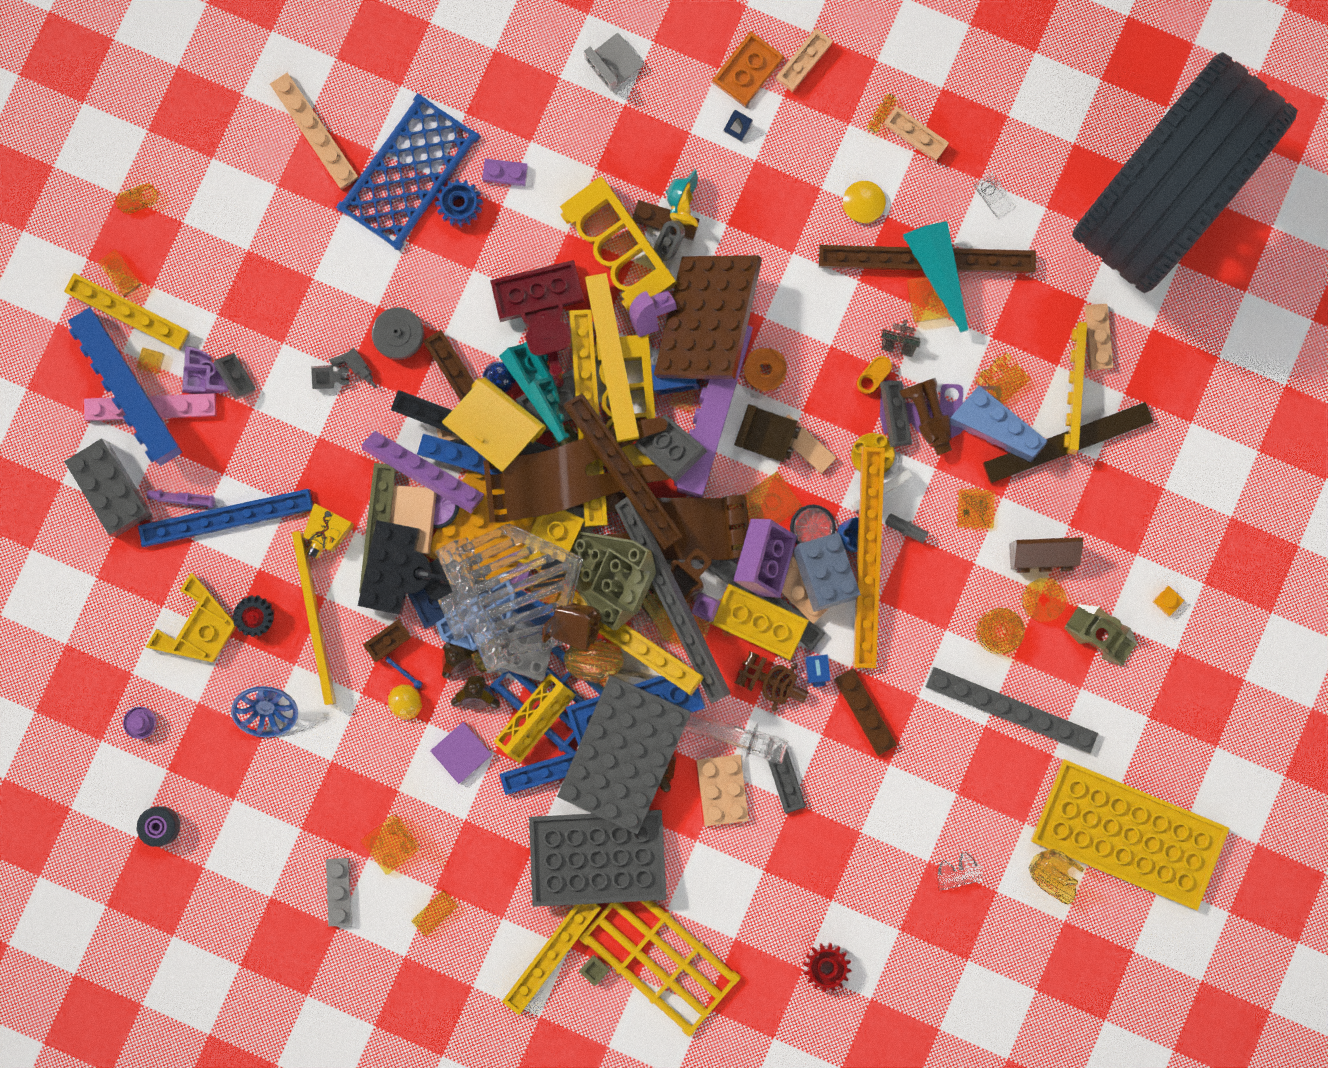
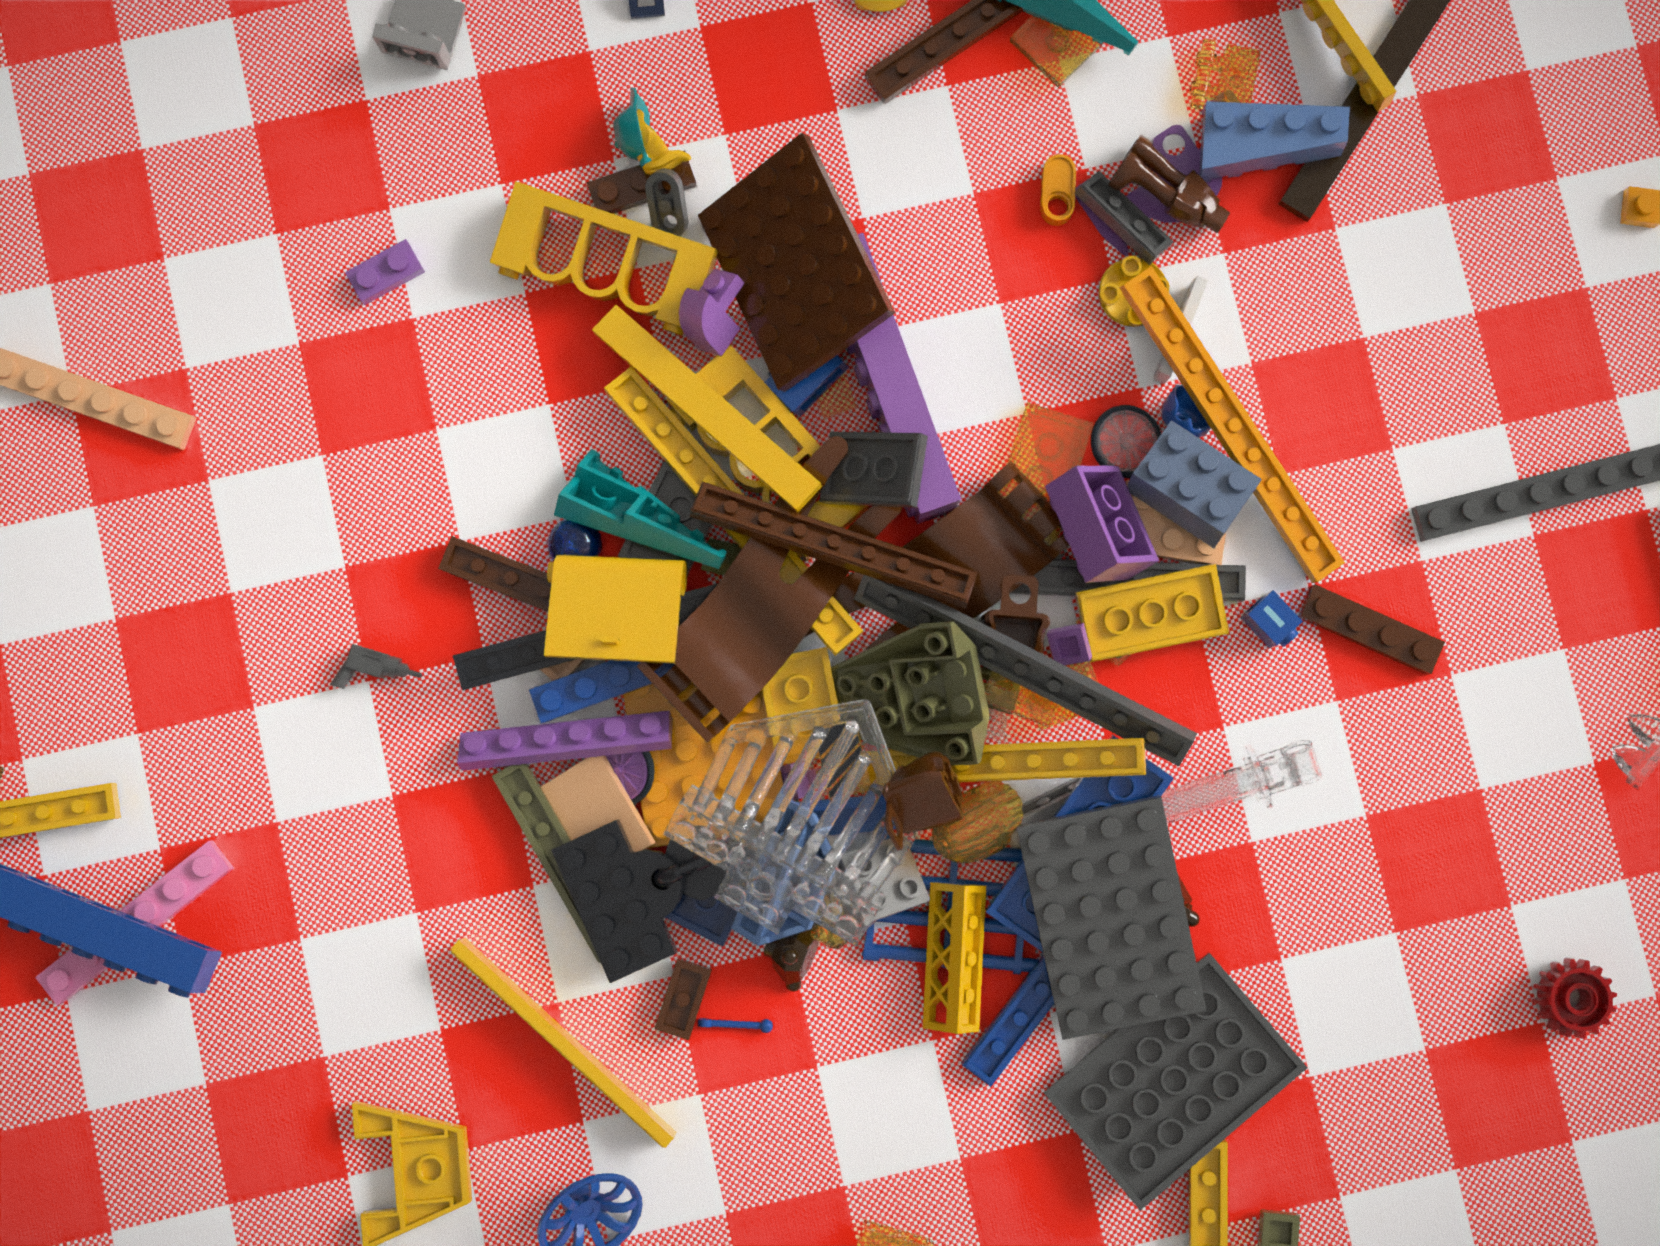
camera: 40 degrees left, 0 degrees up
(108, 488) = (155, 1073): dark grey brick -> none
(150, 361) = (90, 860): clear yellow plate -> none
(182, 498) = (267, 1012): medium lavender piece -> none
(201, 374) = (173, 827): medium lavender brick -> none
(225, 518) = (345, 995): blue tile -> none
(234, 376) = (219, 798): dark grey plate -> none
(253, 616) = (479, 1099): black wheel -> none
(324, 376) = (342, 710): dark grey plate -> none
(325, 530) = (492, 914): yellow torso -> none
(398, 333) = (397, 582): dark grey wheel -> none
(404, 702) = (766, 1062): yellow hair -> none
(418, 100) = (201, 260): blue door -> none
(459, 214) = (339, 340): blue gear -> none
(461, 752) = (890, 1074): medium lavender tile -> none
(475, 695) = (853, 984): dark brown rock -> none
(539, 301) = (554, 405): dark red plate -> none
(669, 981) = (1383, 1169): yellow door -> none
(722, 790) = (1266, 867): light nougat plate -> none
(766, 357) = (930, 271): orange plate -> none
(767, 434) = (982, 362): dark brown panel -> none
(787, 785) = (1346, 801): dark grey tile -> none
(791, 690) = (1249, 672): reddish brown torso -> none
(812, 450) = (1036, 342): light nougat tile -> none
(890, 337) = (1073, 115): clear smoke hips -> none
(906, 528) = (1248, 354): dark grey axle -> none
(975, 508) = (1313, 266): clear yellow piece -> none
(1009, 621) = (1480, 384): clear yellow wheel -> none
(1045, 554) = (1451, 257): reddish brown slope -> none
(1052, 591) = (1491, 299): plate -> none
(1088, 620) = (1562, 303): olive piece -> none

